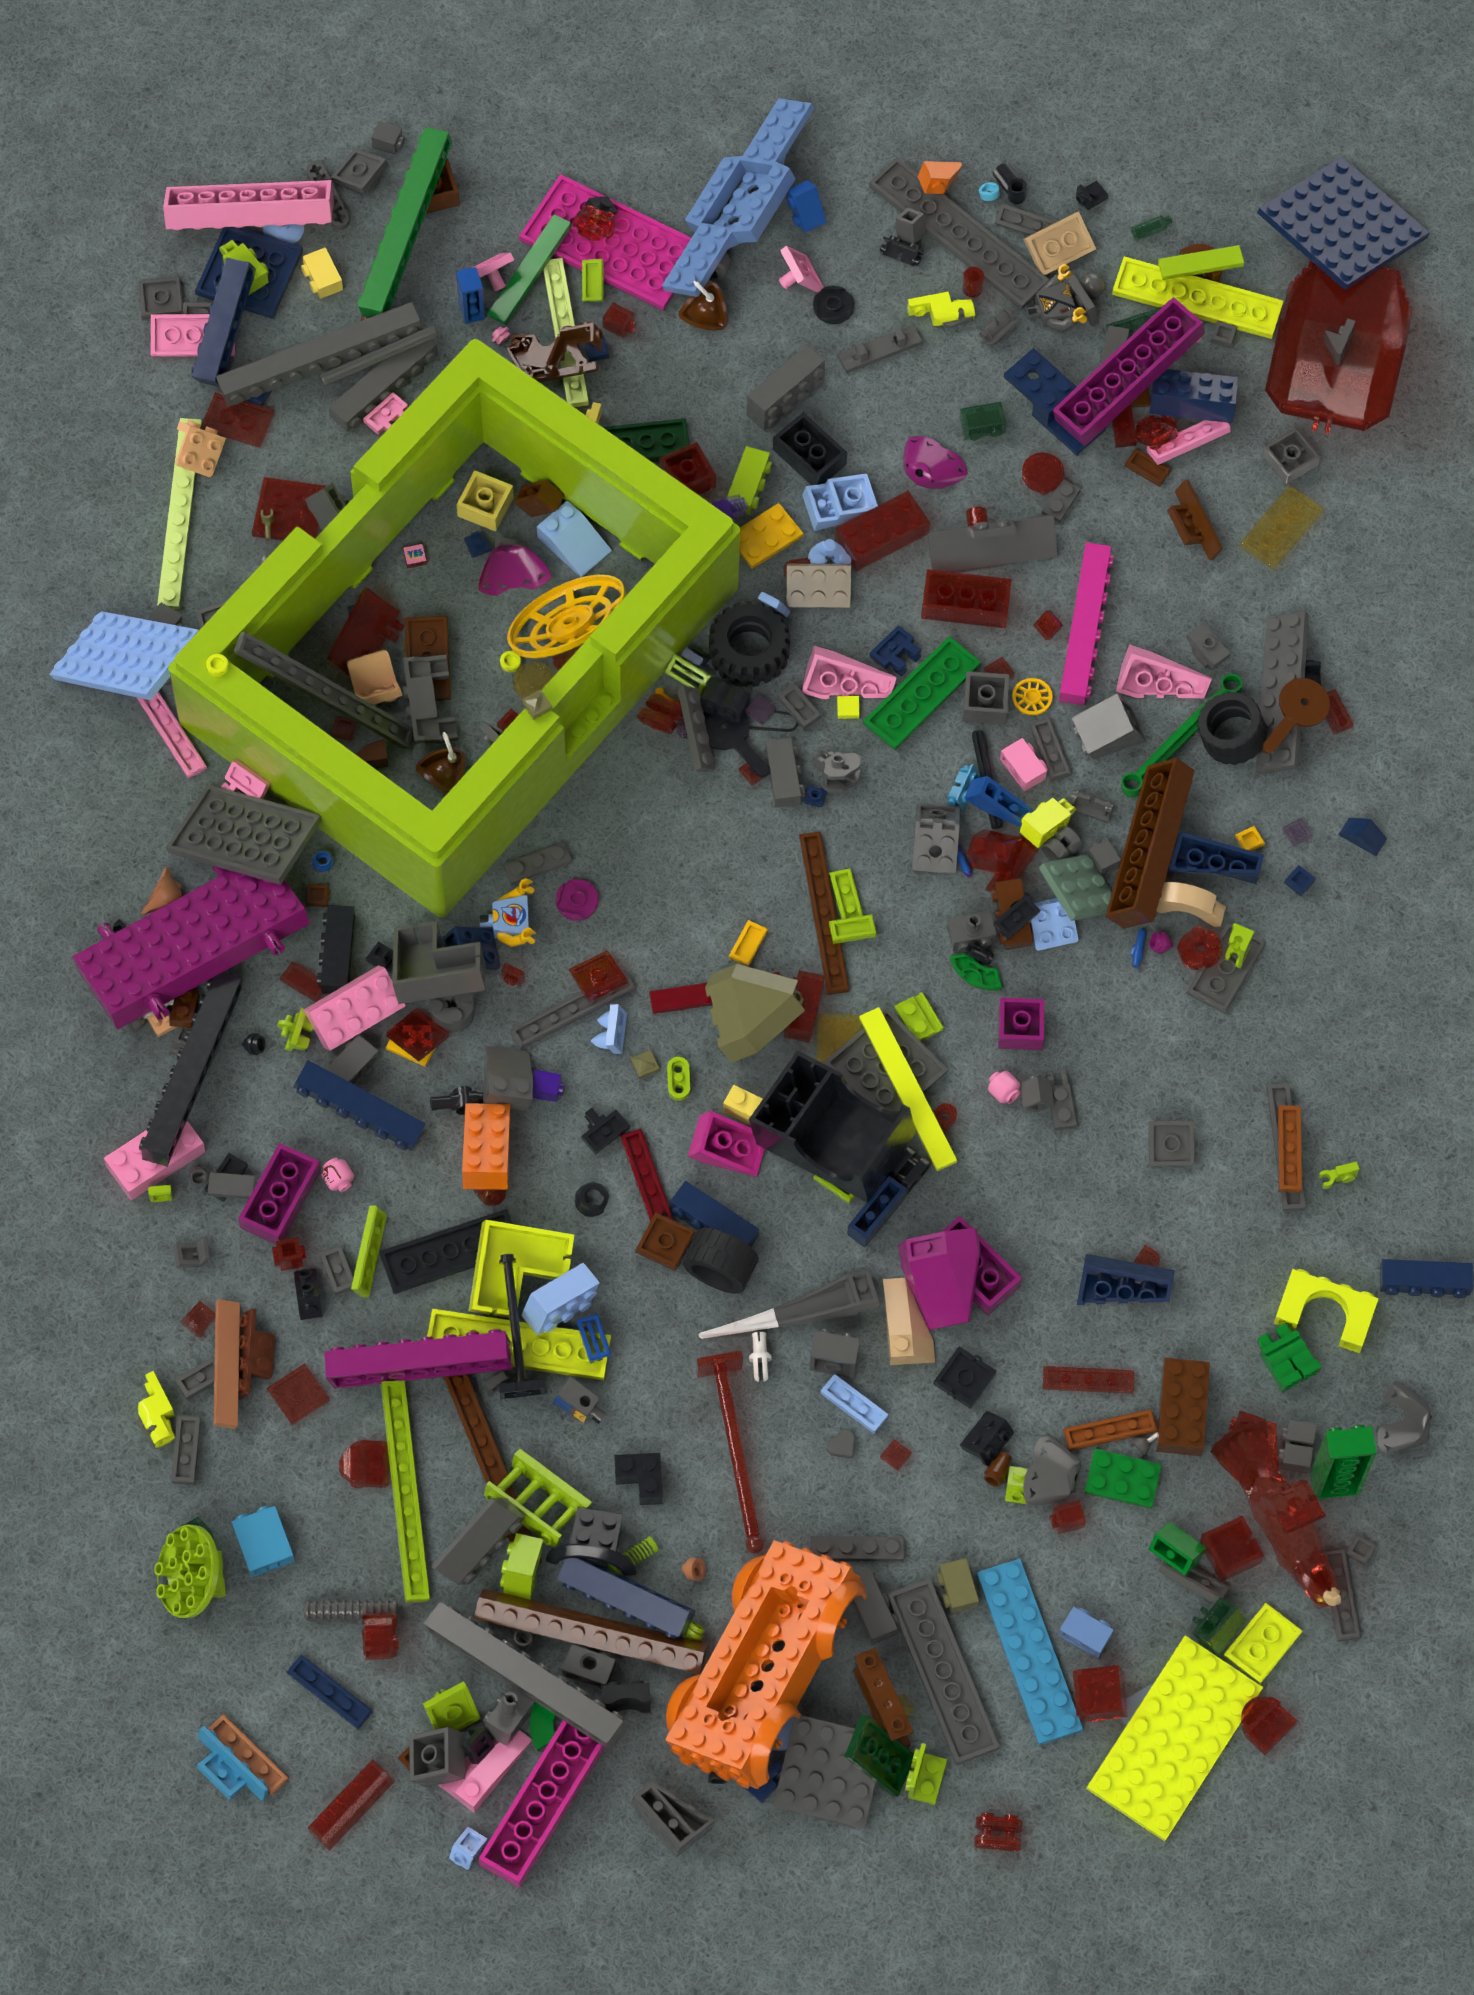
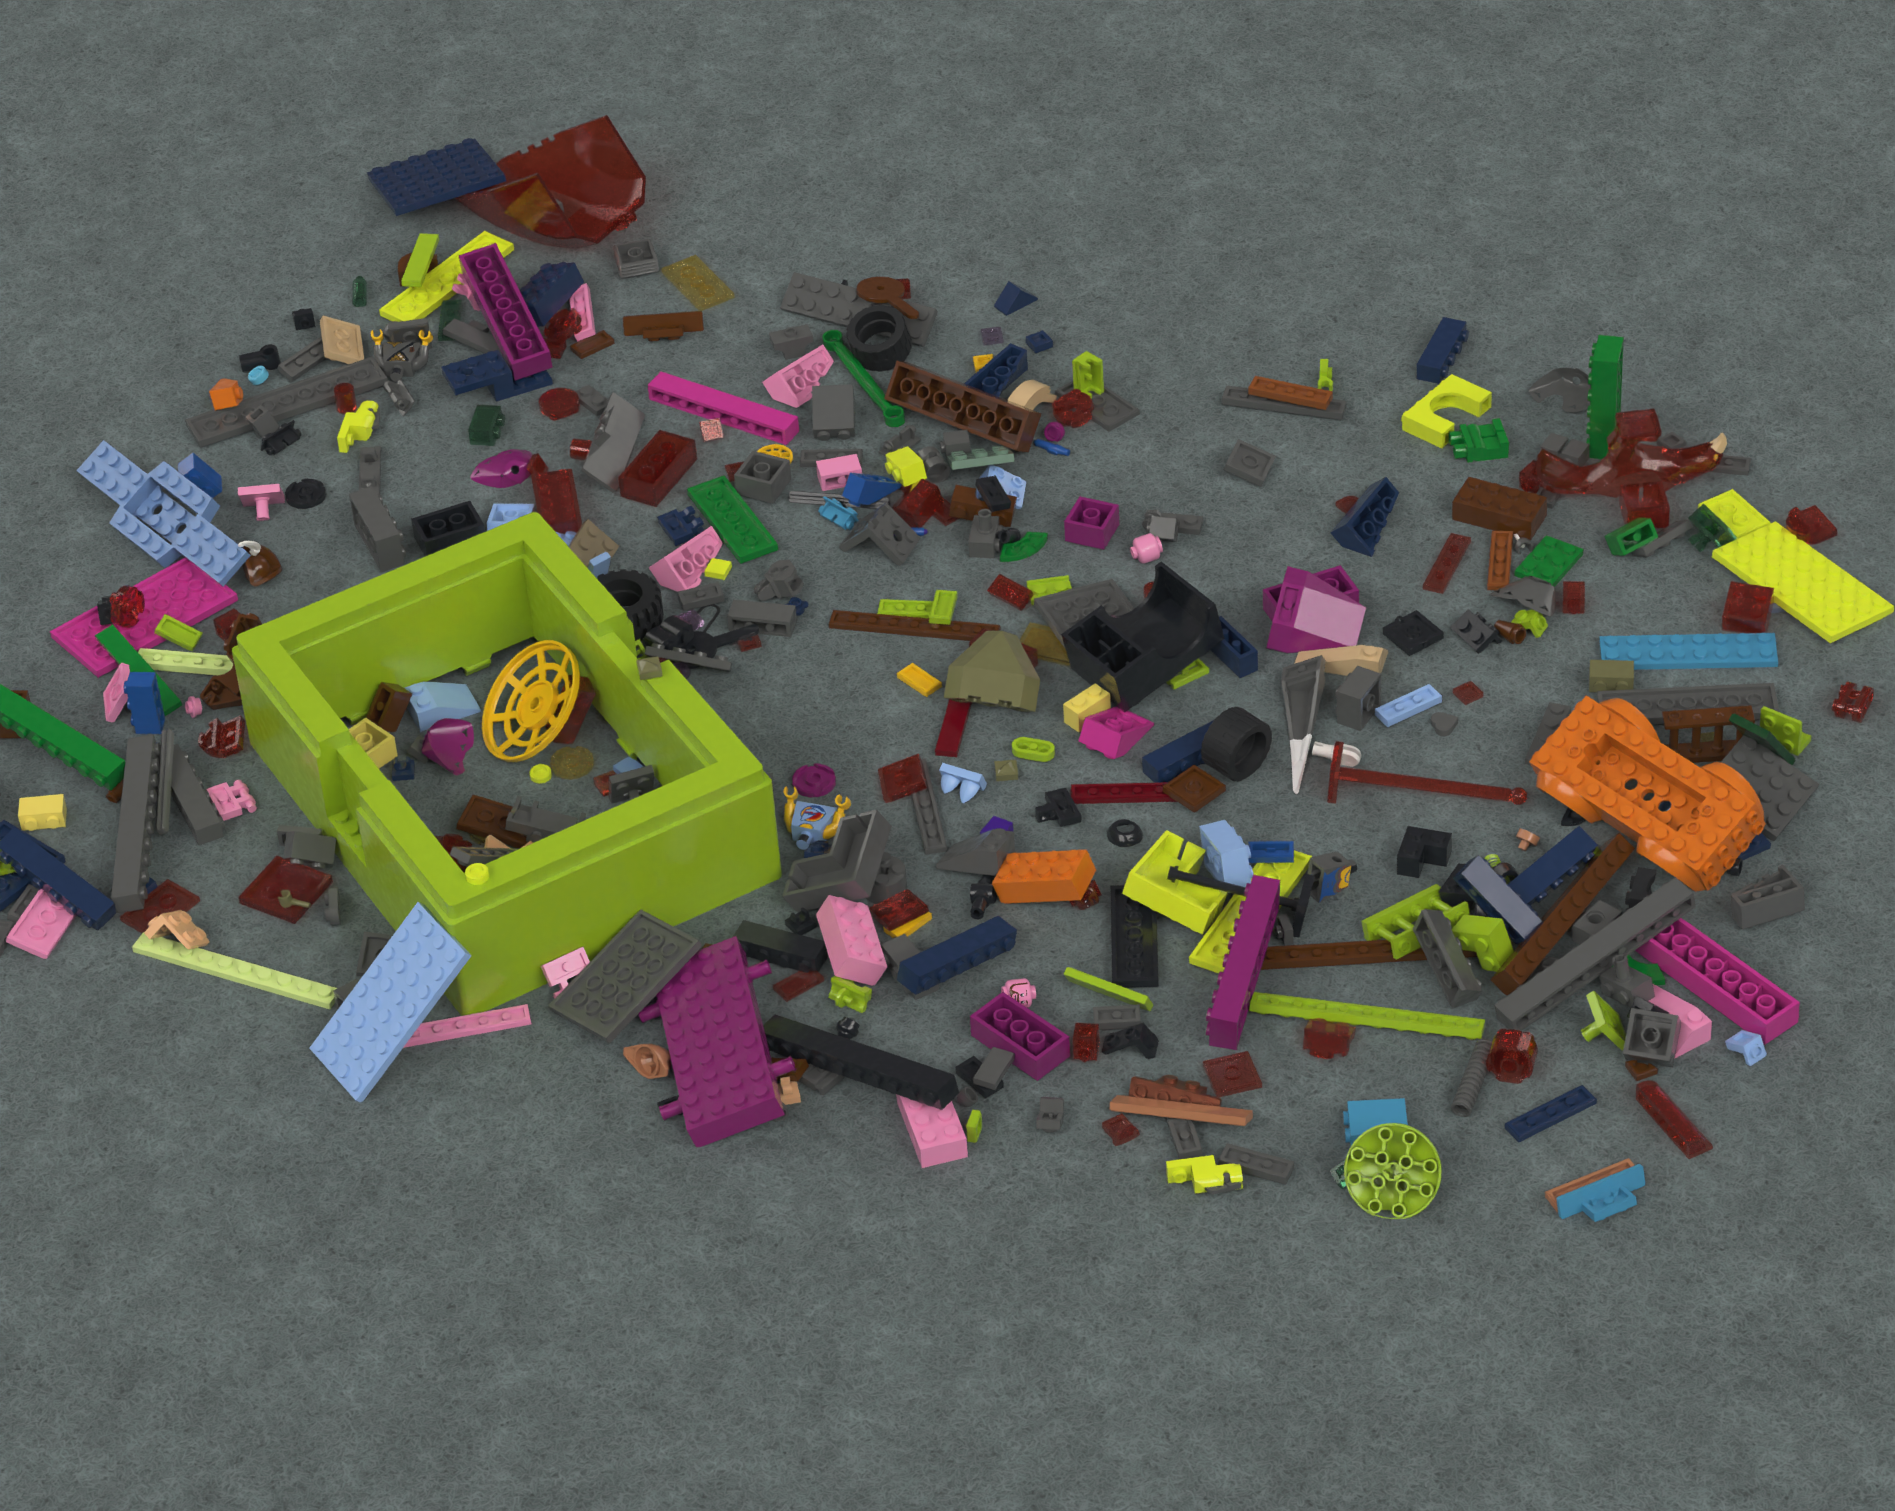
camera: 65 degrees left, 25 degrees down
(563, 1564) = (1497, 898): none -> brick
(897, 982) = (1010, 592): none -> clear red plate
(908, 1088) = (1088, 602): neon yellow tile -> none
(935, 491) = (536, 465): none -> clear red tile
(1086, 1631) = (1685, 610): medium blue brick -> none

